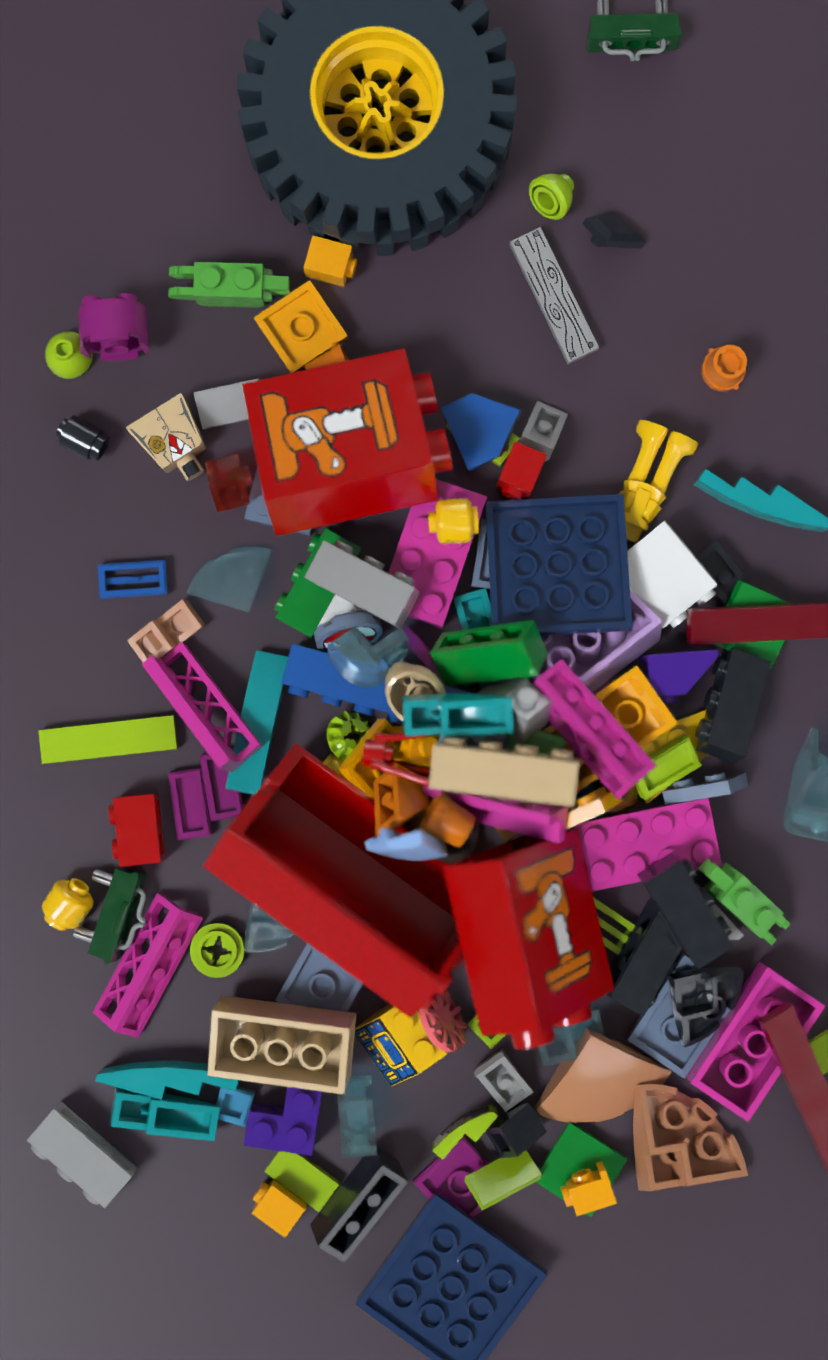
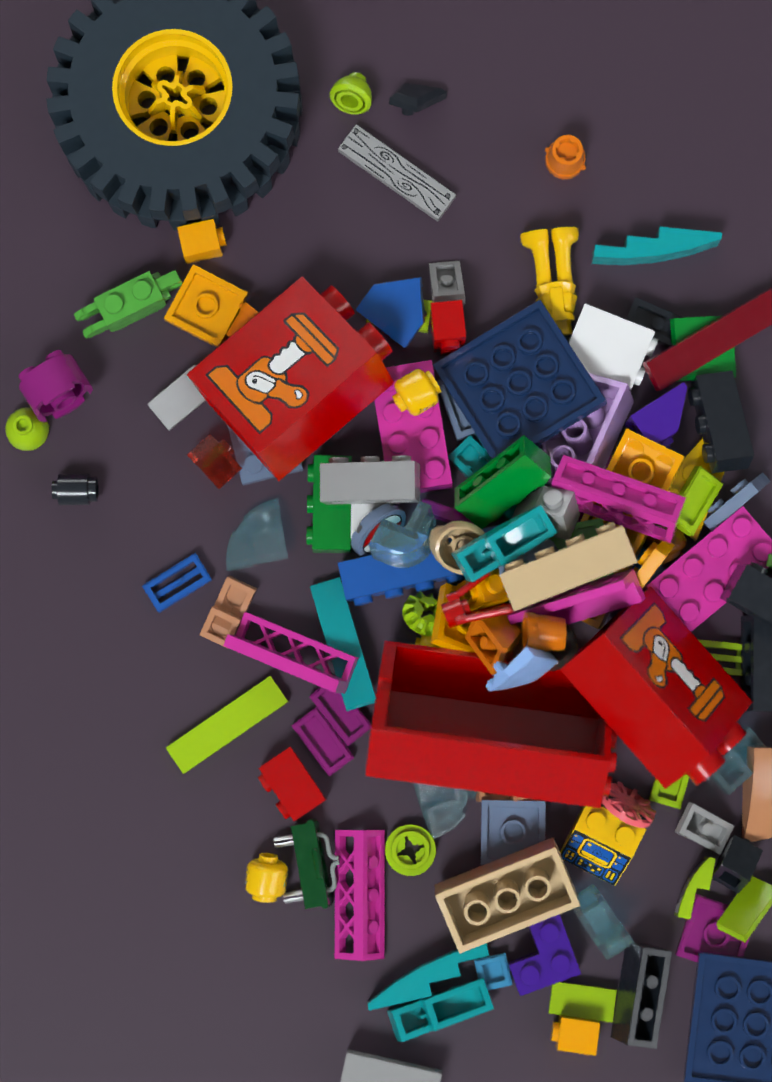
camera: 25 degrees left, 5 degrees down
(171, 437) = (147, 450): tan torso -> none

